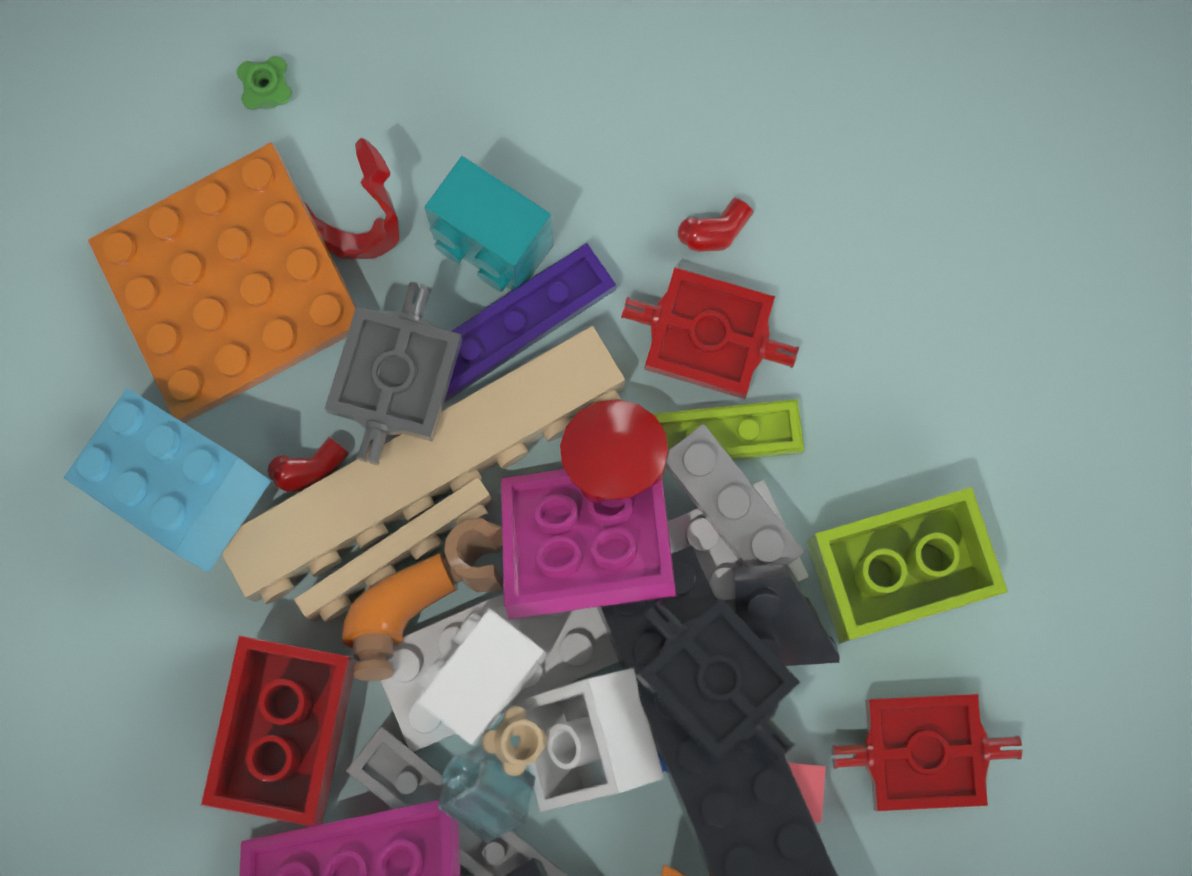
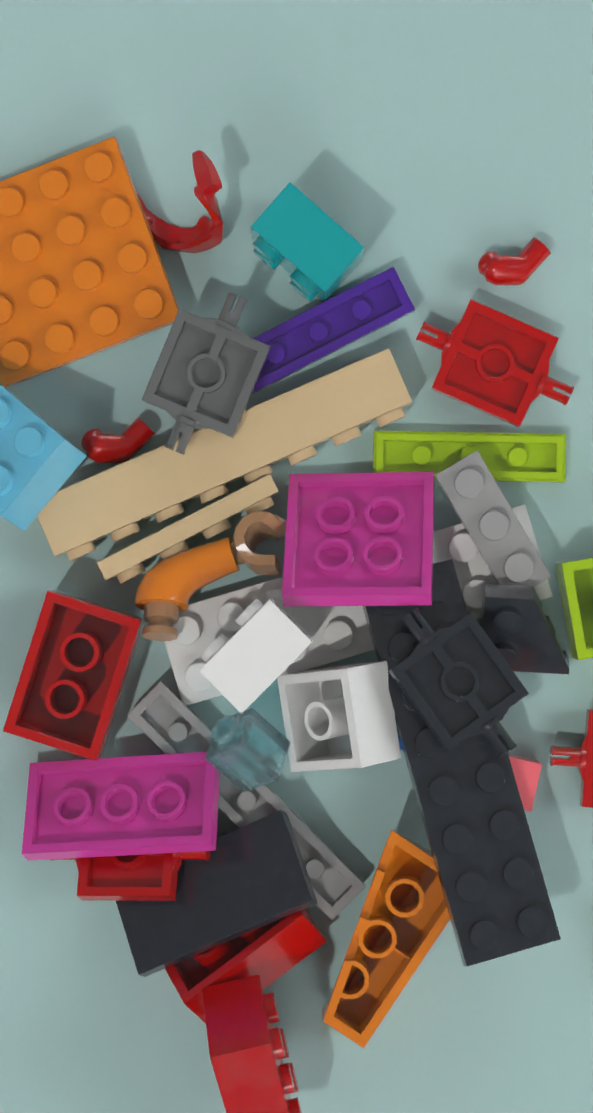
camera: 10 degrees right, 10 degrees up
(266, 97) = (103, 85): bright green plate -> none
(530, 745) = (290, 711): tan plate -> none
(614, 450) = (394, 465): red dish -> none

